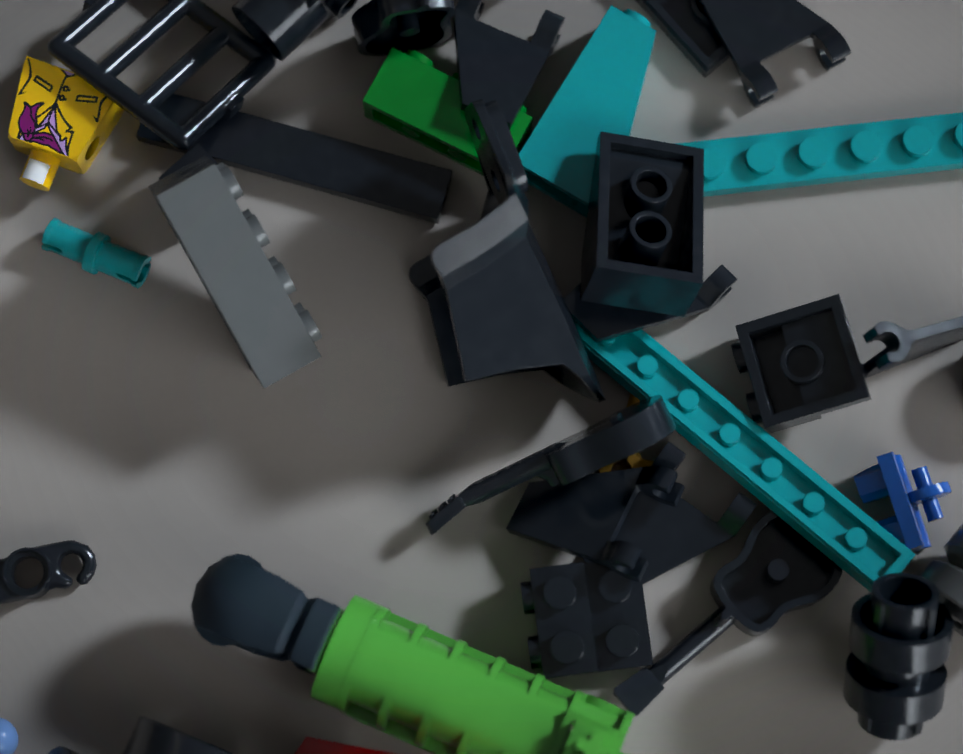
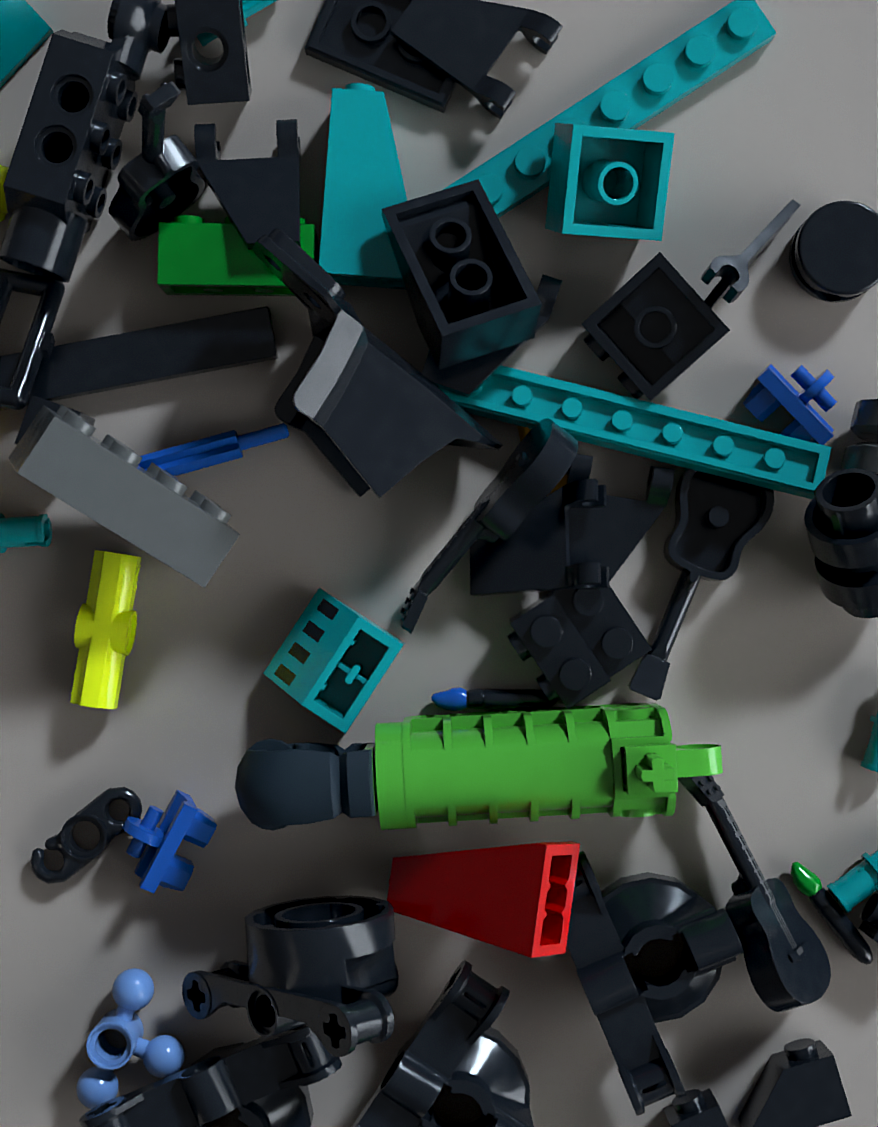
camera: 25 degrees left, 10 degrees up
(83, 631) = (159, 862): none -> blue hips
(149, 389) = (105, 630): none -> neon yellow piece
(336, 276) = (211, 450): none -> blue axle
(348, 523) = (333, 660): none -> teal slope
(446, 622) = (459, 698): none -> black piece
(823, 209) = (609, 181): none -> teal brick

